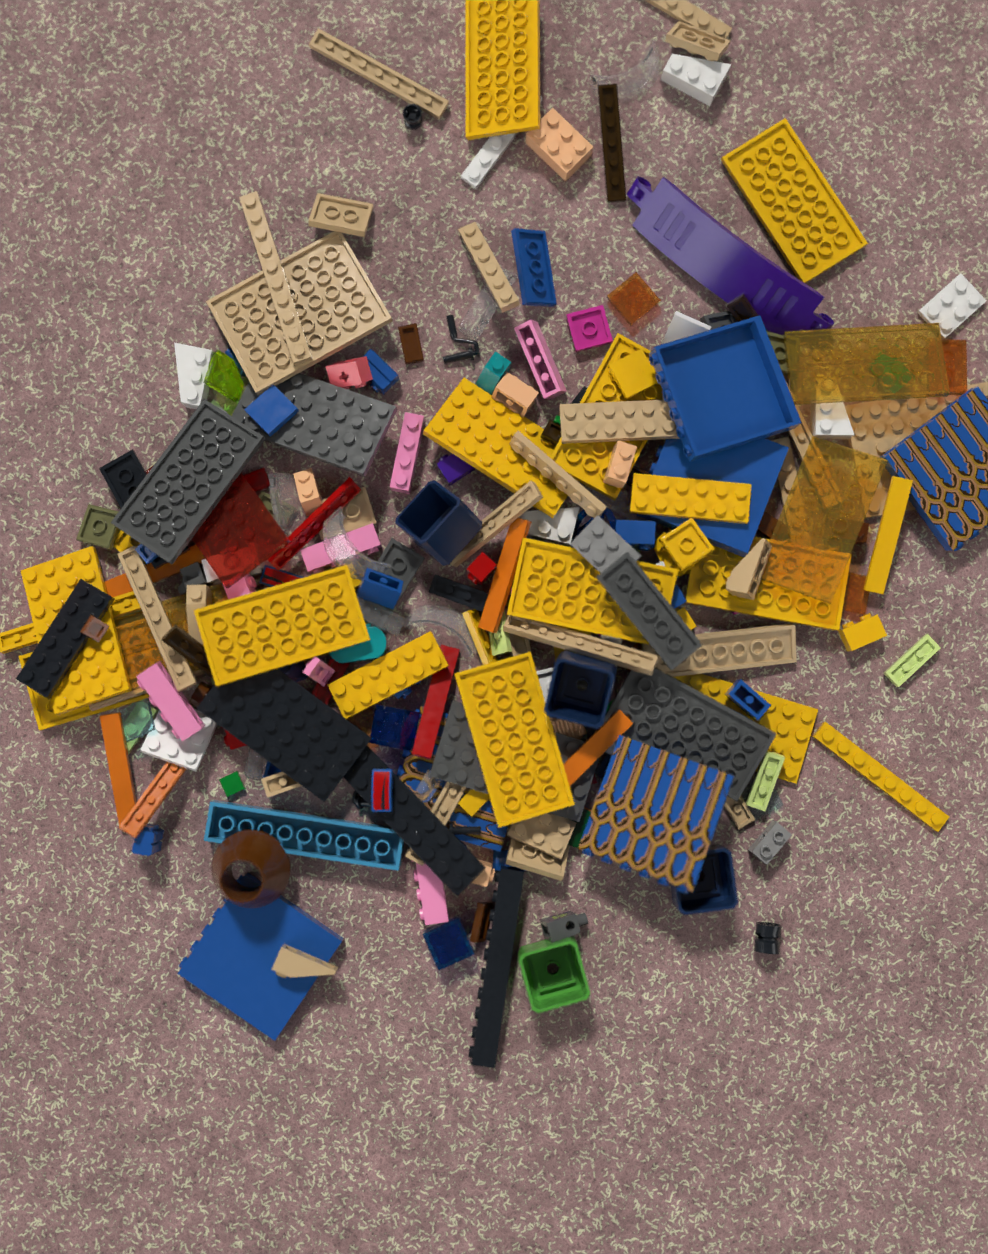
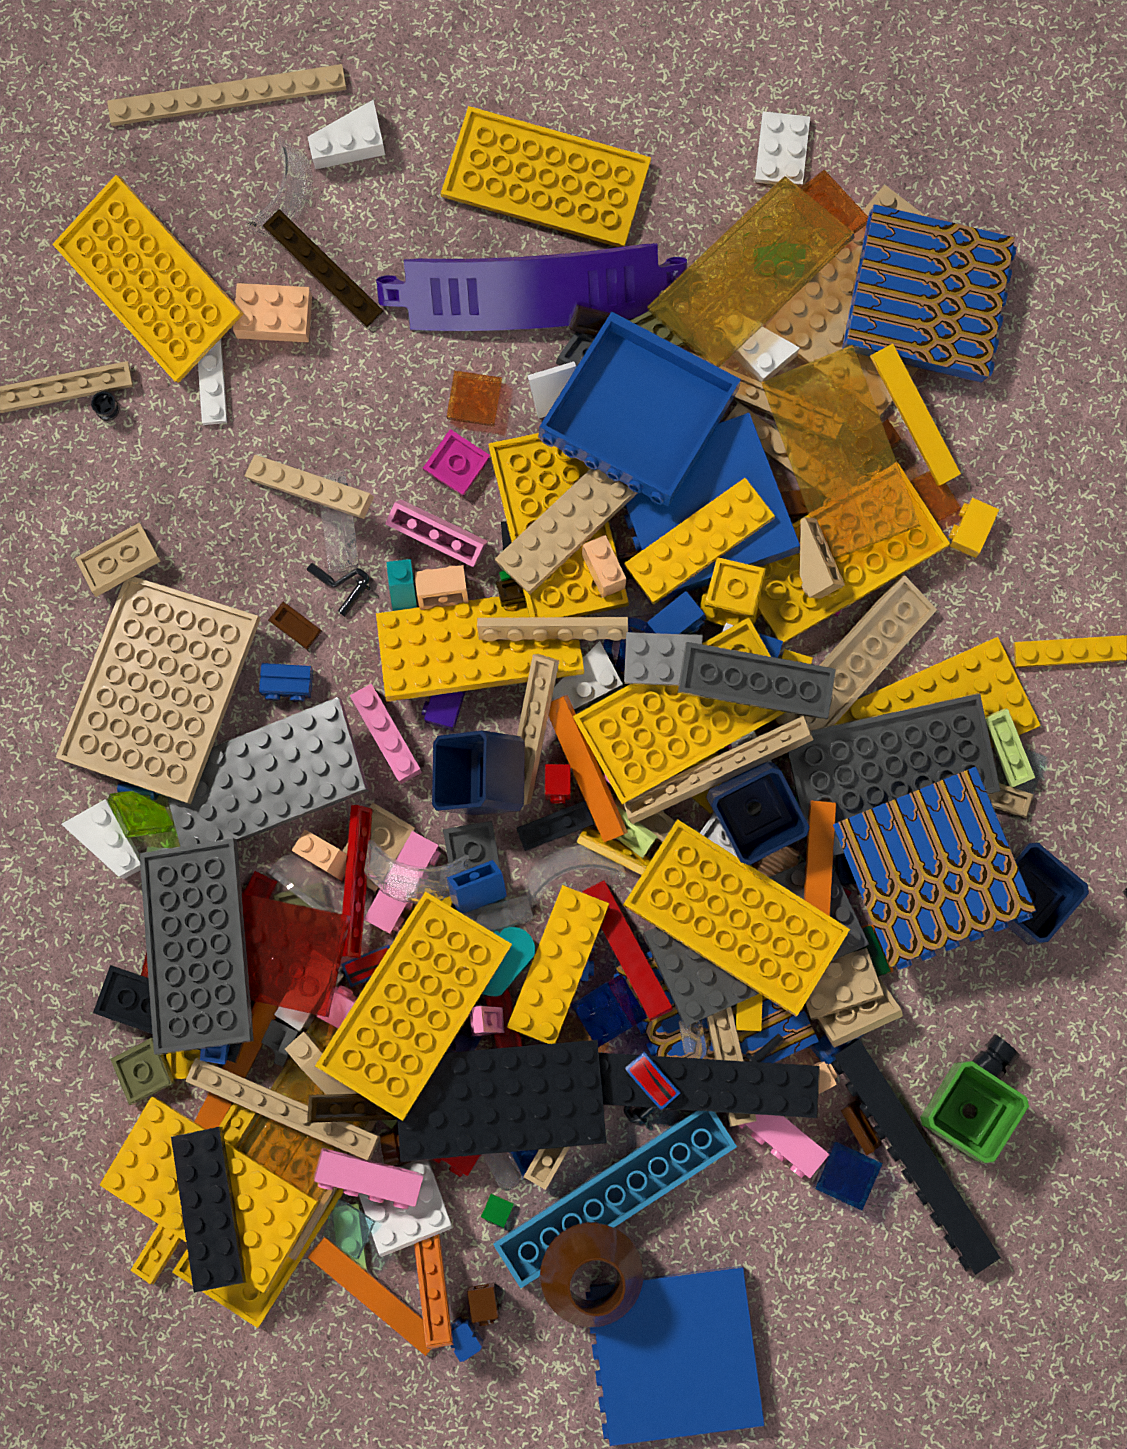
camera: 40 degrees left, 5 degrees down
(94, 628) = (230, 1172): dark orange tile -> none
(176, 830) = (483, 1303): none -> reddish brown brick
(271, 410) = (218, 806): blue tile -> none
(276, 278) = (108, 675): tan plate -> none
(297, 963) = (722, 1325): tan slope -> none
(349, 373) = (261, 704): coral brick -> none
(534, 267) = (352, 450): blue tile -> none
(555, 927) = (937, 1067): dark grey torso -> none
(595, 952) = (997, 1056): none -> black wheel
(633, 374) = (539, 469): yellow tile -> none
(697, 41) = (321, 104): tan plate -> none
(747, 699) = (923, 684): blue brick -> none
(769, 842) = (1065, 803): light grey brick -> none
(912, 660) = (1043, 513): yellowish green plate -> none

